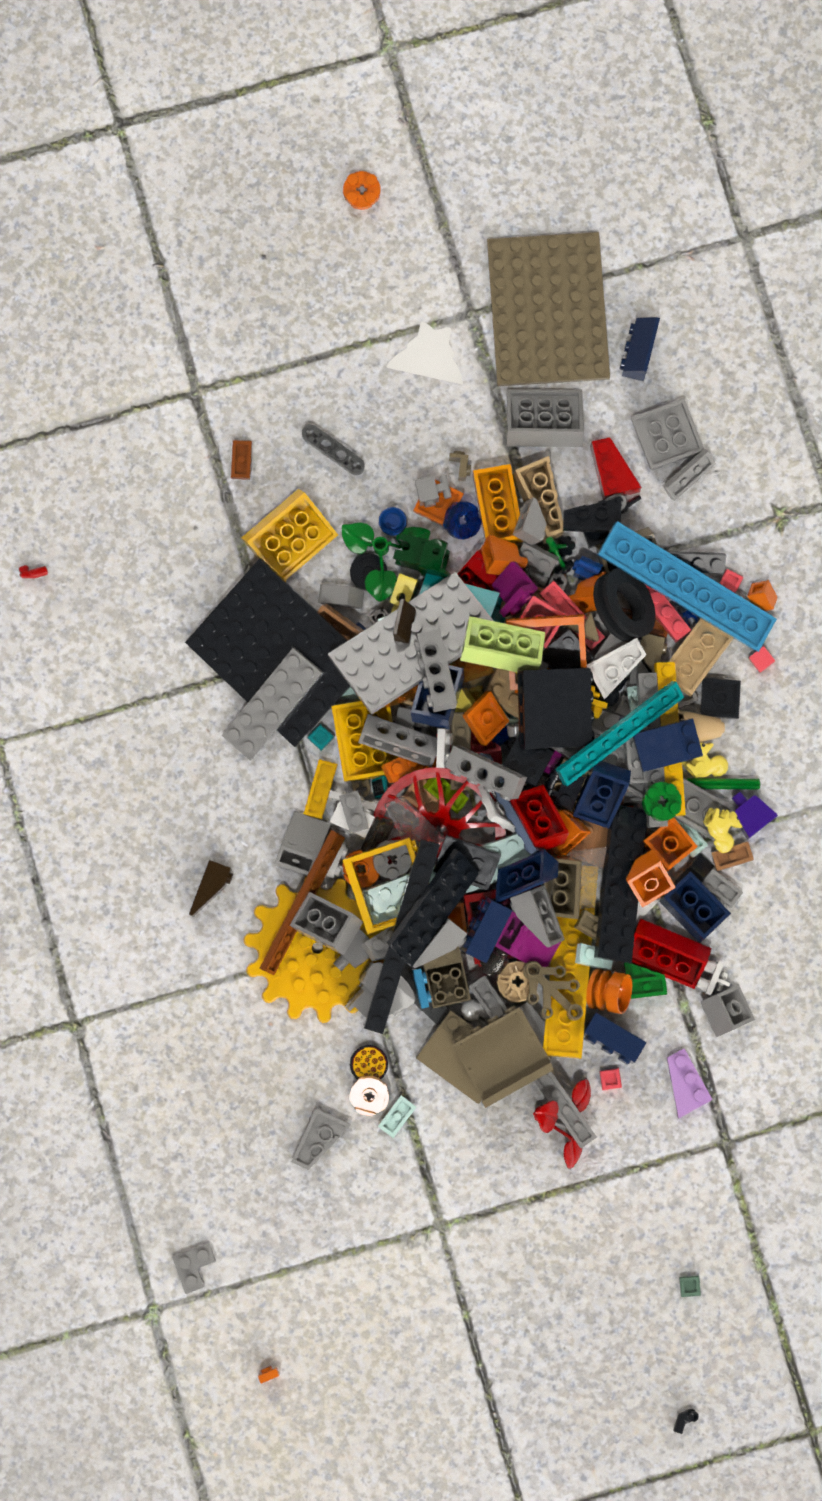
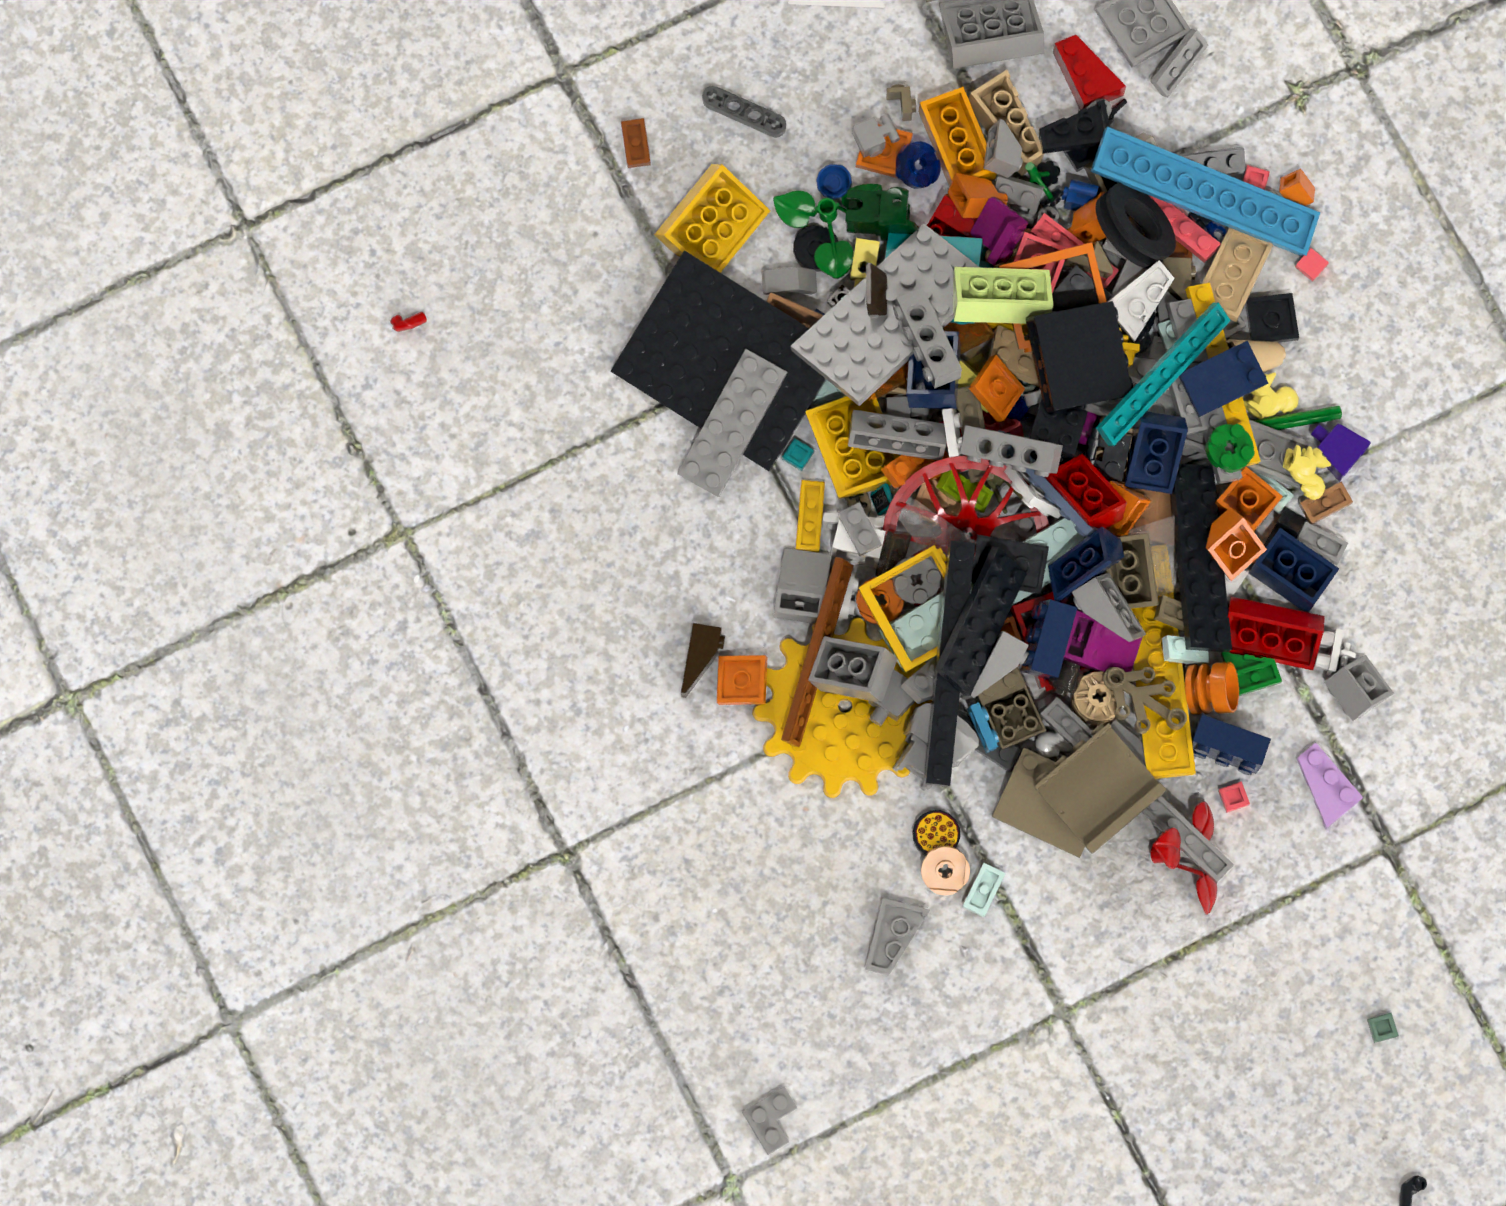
camera: 10 degrees left, 5 degrees down
(239, 912) = (742, 680): none -> orange plate

